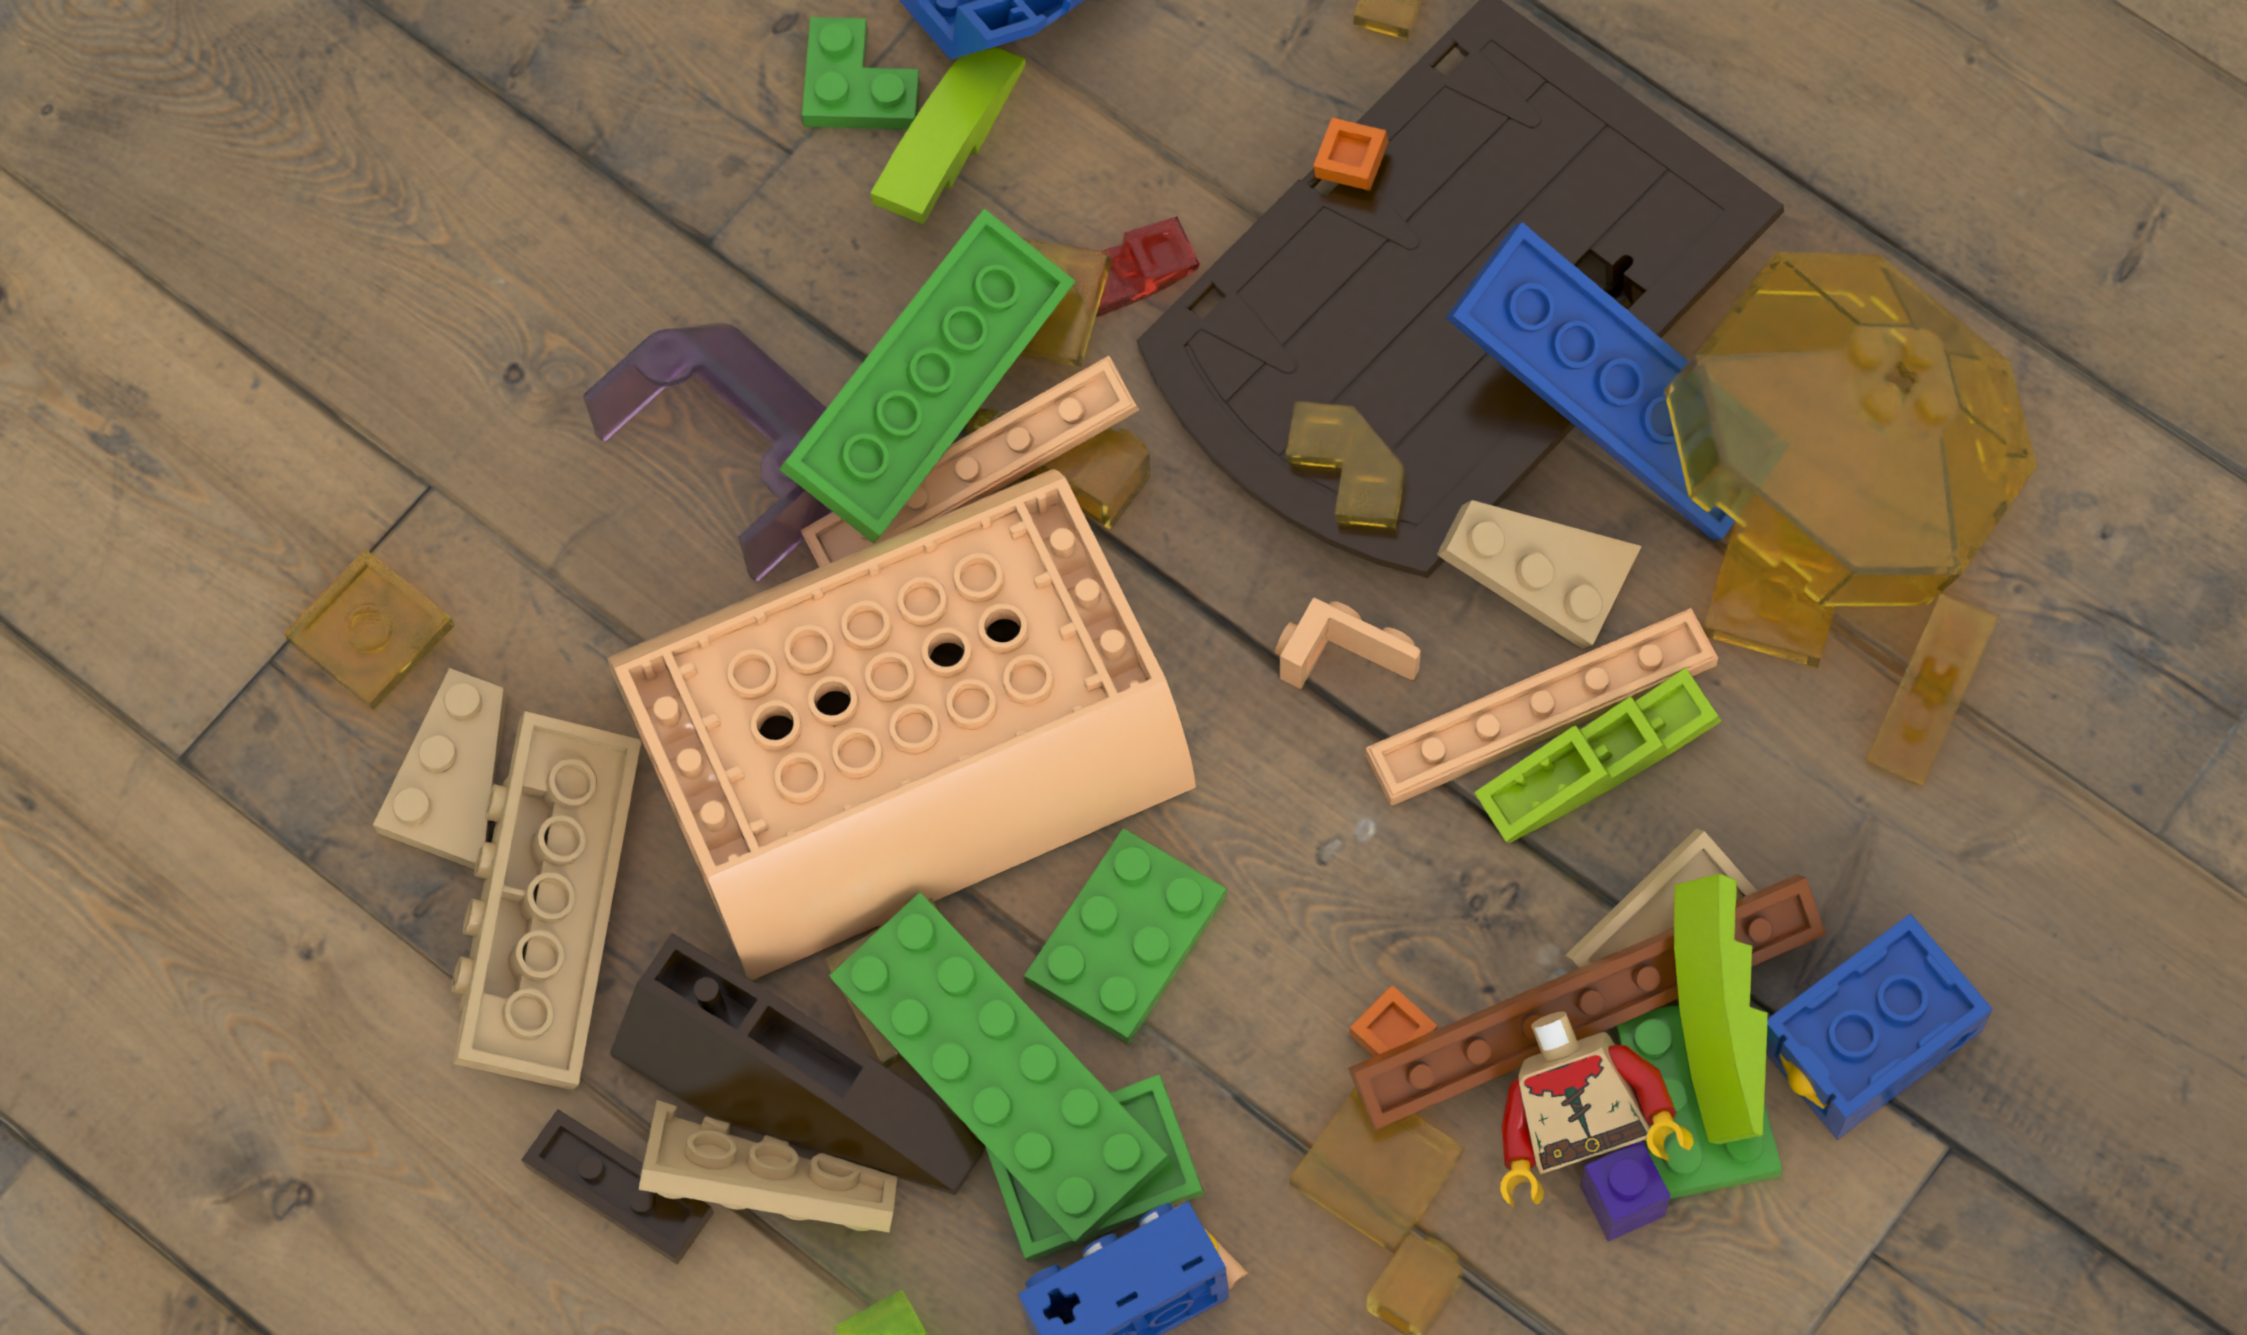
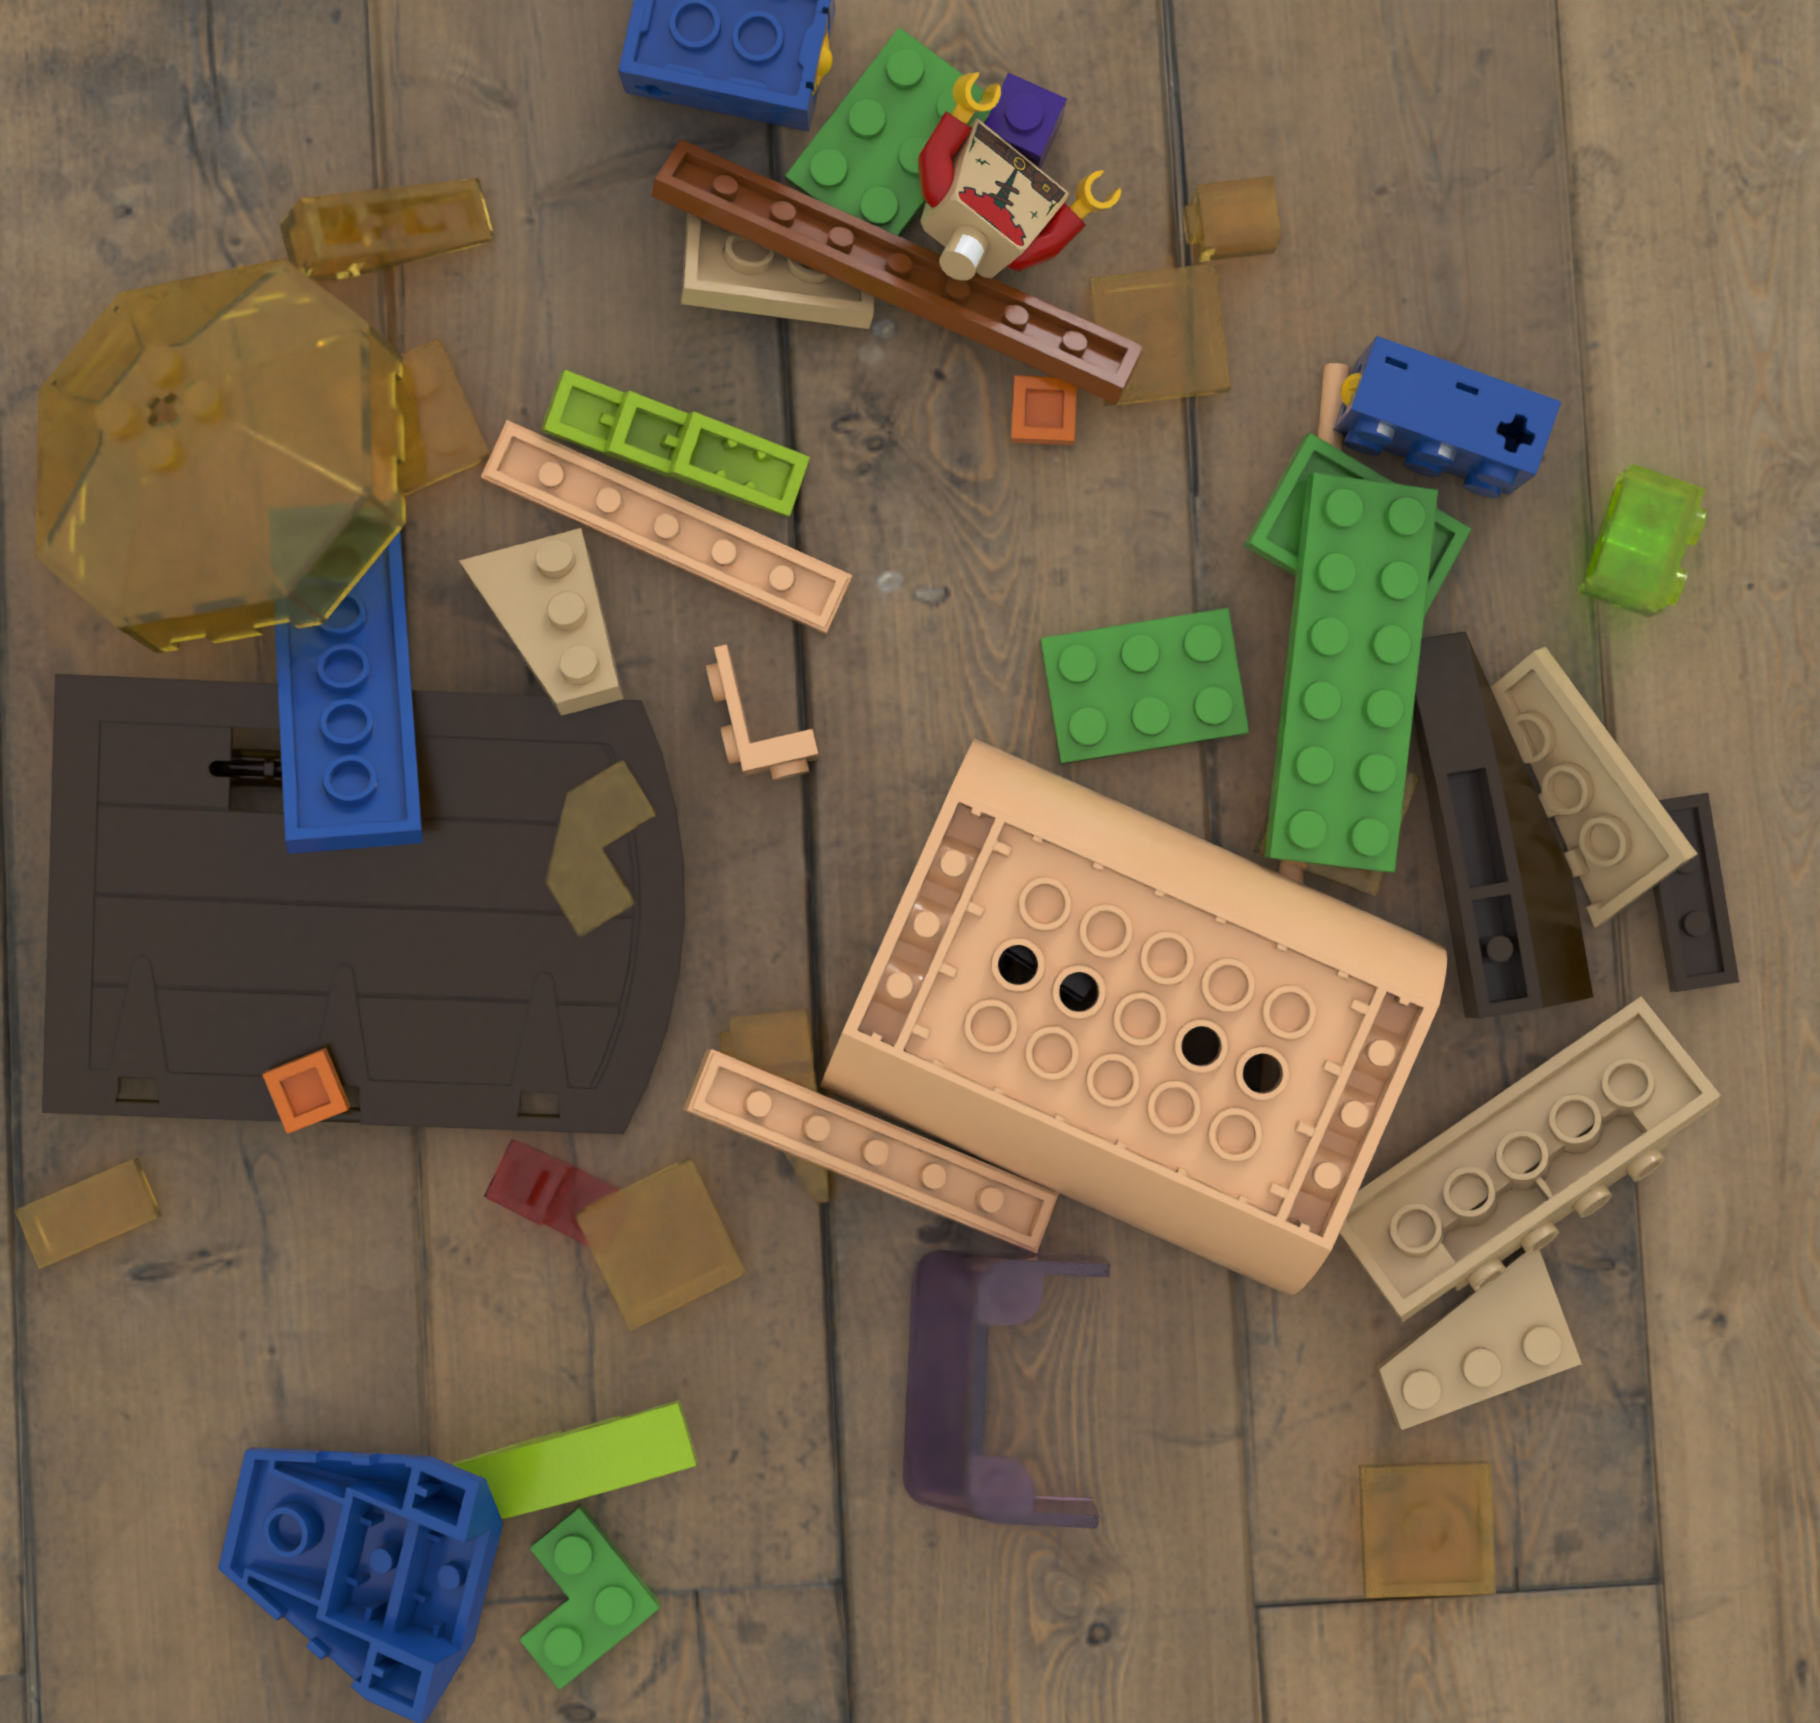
camera: 135 degrees left, 20 degrees up
(927, 376) = (829, 1251): bright green plate -> none
(1719, 1027) = (824, 159): lime slope -> none

